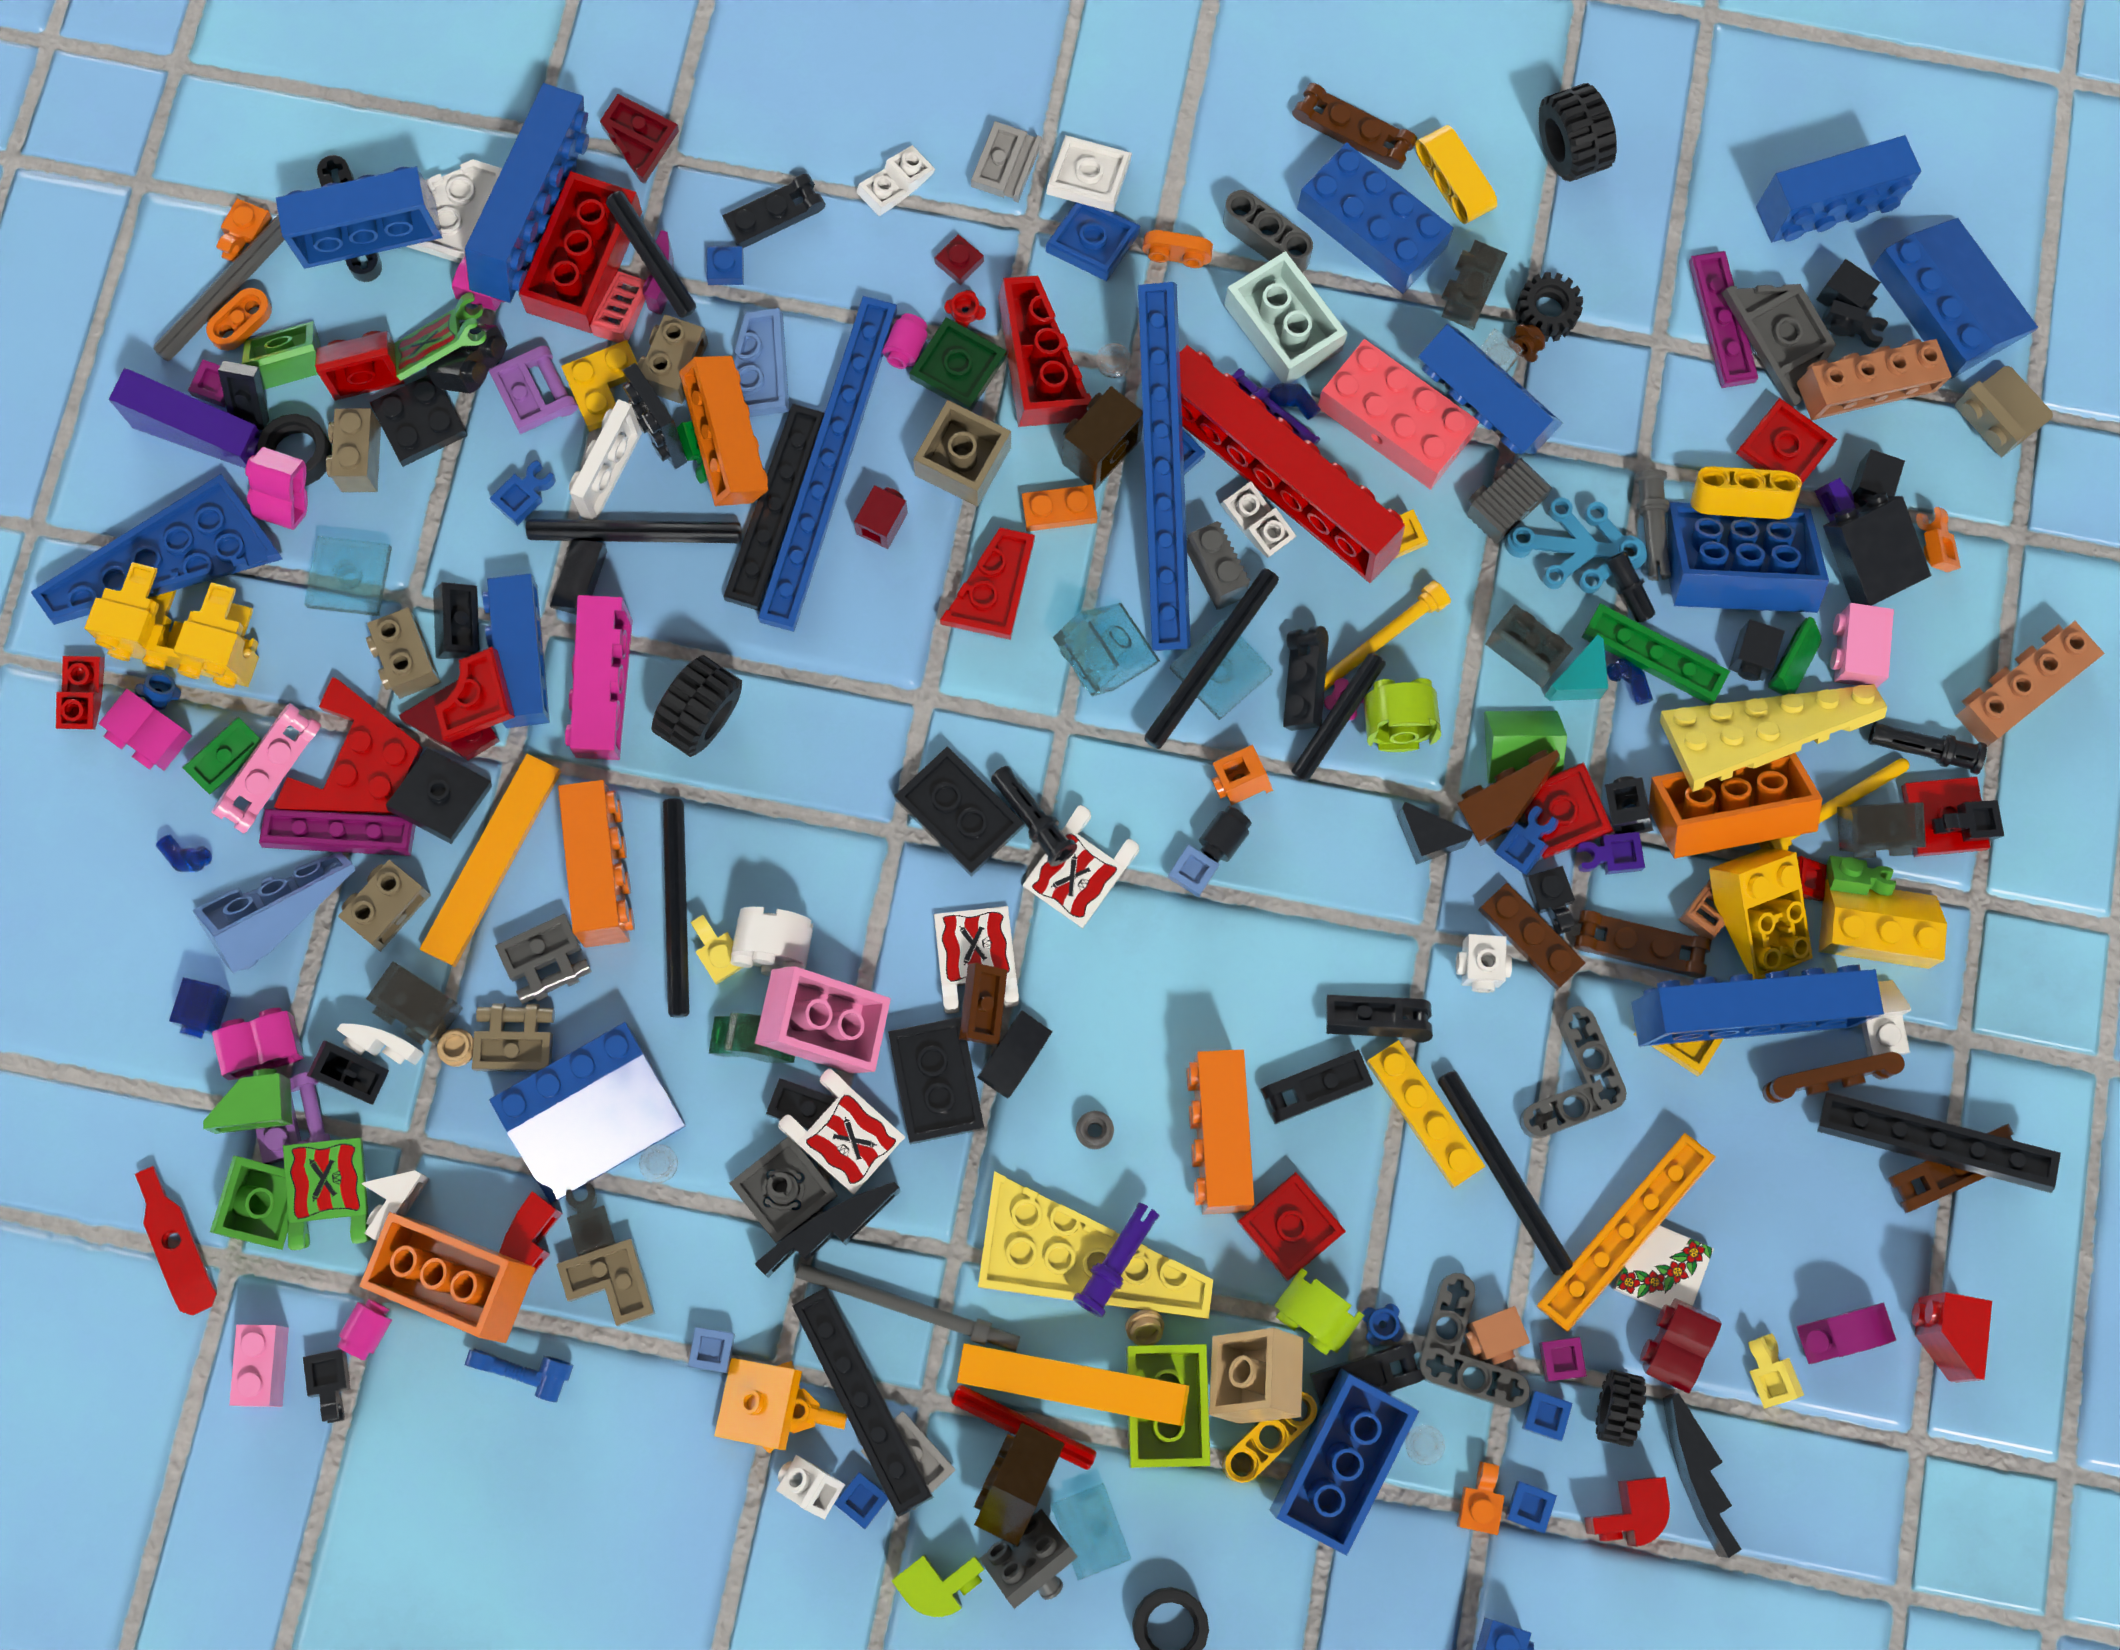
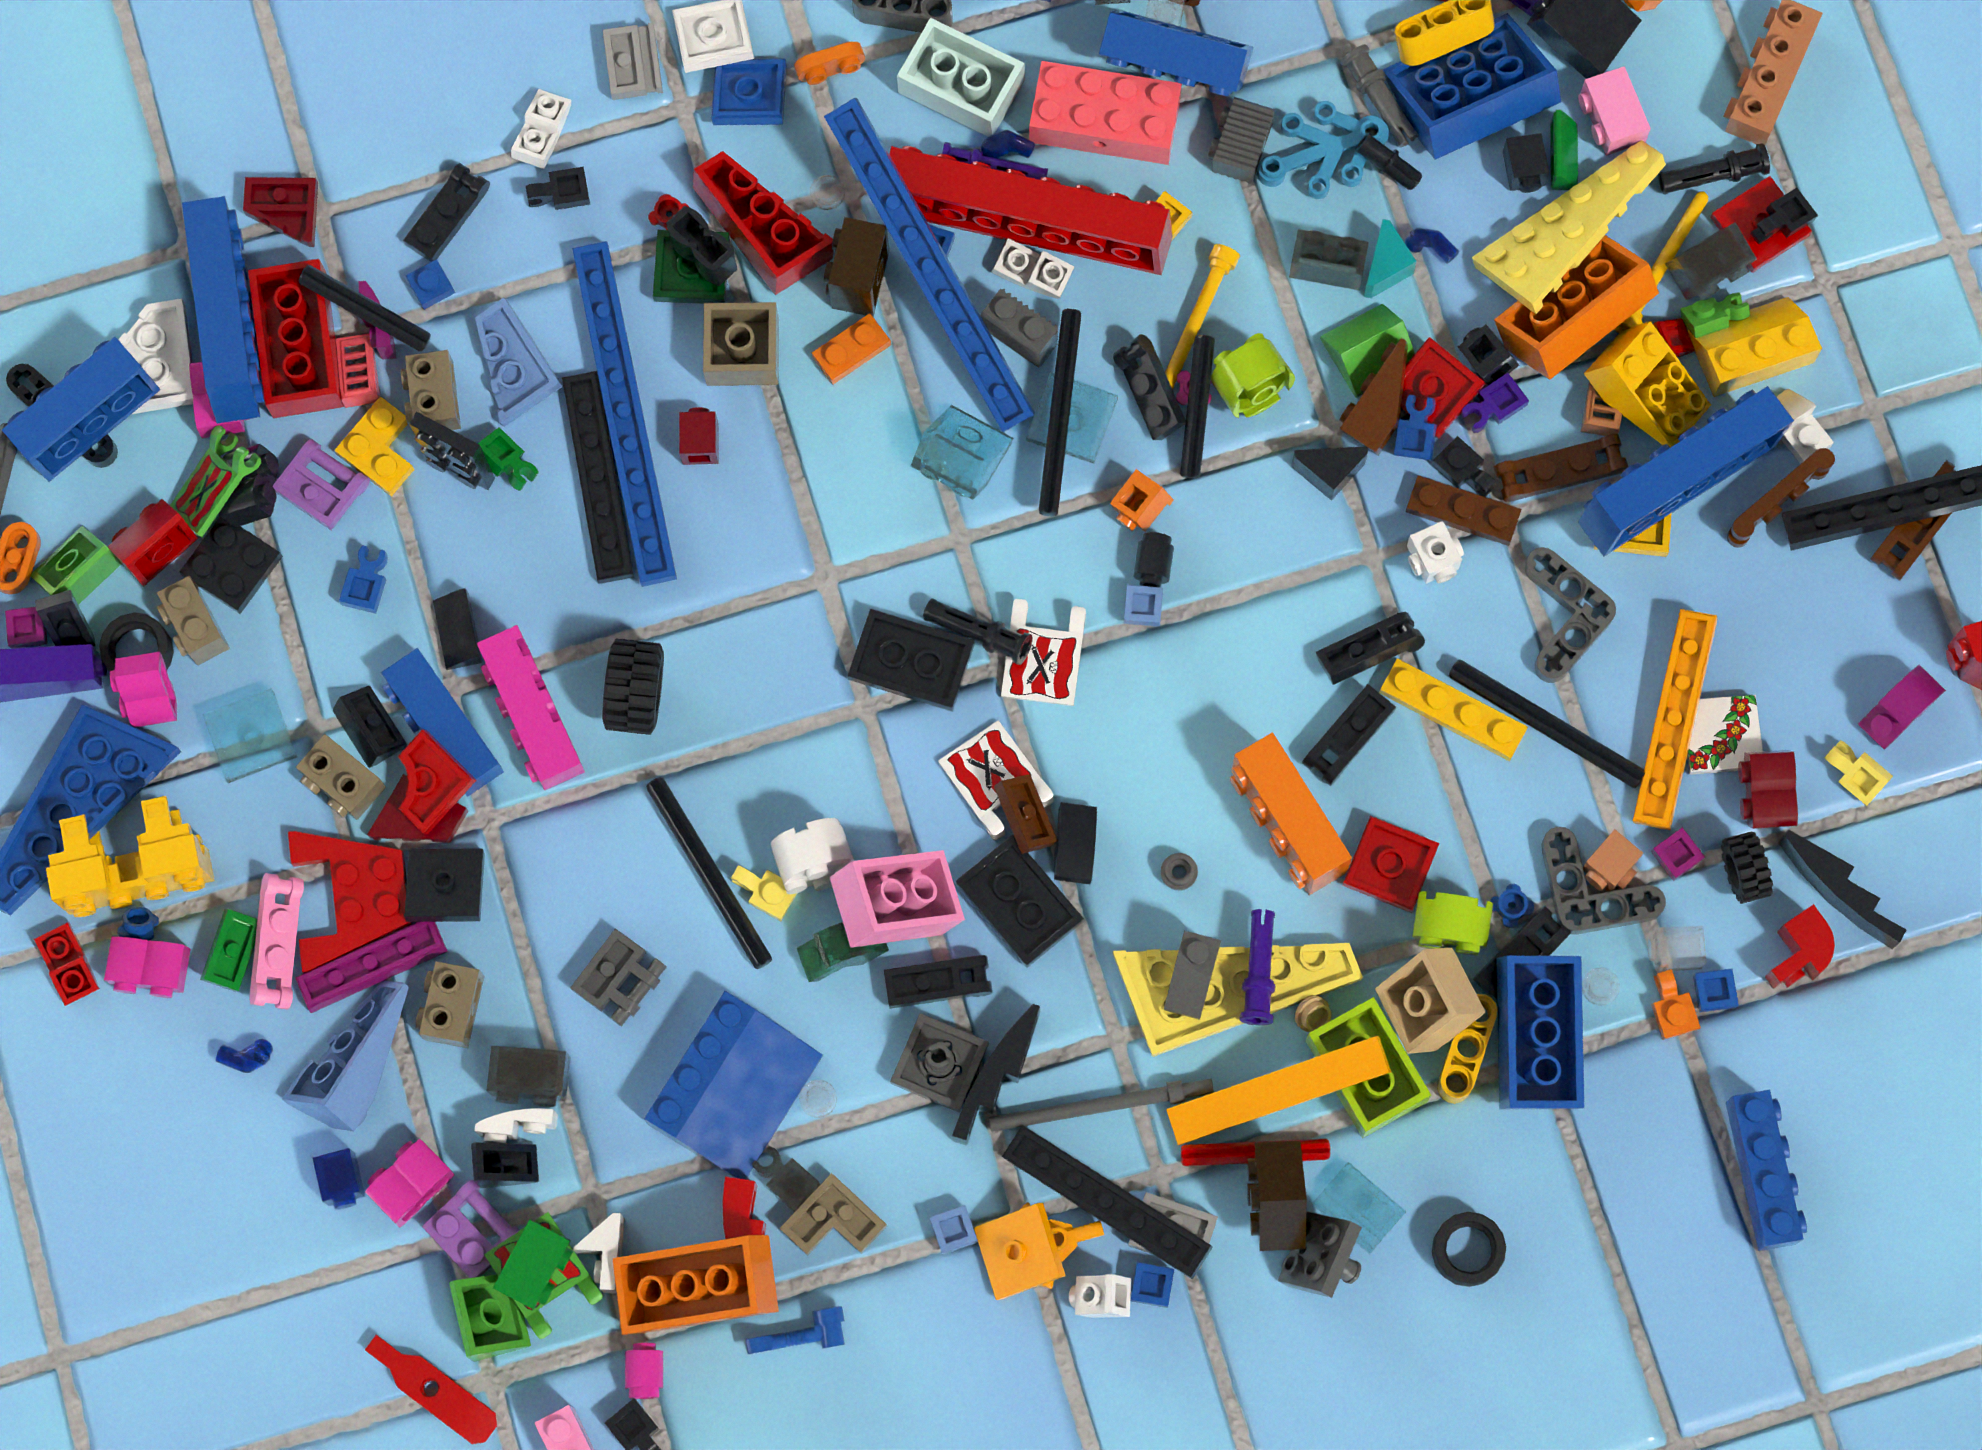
camera: 20 degrees left, 0 degrees up
(253, 1104) = (439, 1232): bright green slope -> none
(317, 1179) = (533, 1264): none -> green brick
(455, 1047) = (584, 1093): tan plate -> none
(490, 860) = (521, 917): light orange tile -> none
(512, 1050) = (636, 1069): dark tan plate -> none
(594, 863) = (617, 867): orange brick -> none
(605, 460) = (427, 513): white plate -> none
(633, 531) = (483, 563): black axle -> none
(723, 430) = (518, 432): orange brick -> none
(848, 1137) = (971, 989): flag -> none
(885, 242) = (565, 188): none -> black plate
(905, 341) = (632, 269): dark pink brick -> none
(932, 1595) = (1252, 1329): lime brick -> none
(959, 259) = (638, 171): dark red plate -> none
(973, 348) = (698, 244): none -> black brick
(994, 589) = (834, 449): red wing -> none
(1051, 1233) = (1192, 975): none -> dark grey slope
(1515, 1448) = (1678, 948): none -> clear brick
(1547, 1416) = (1689, 907): blue plate -> none
(1657, 654) = (1442, 210): green plate -> none

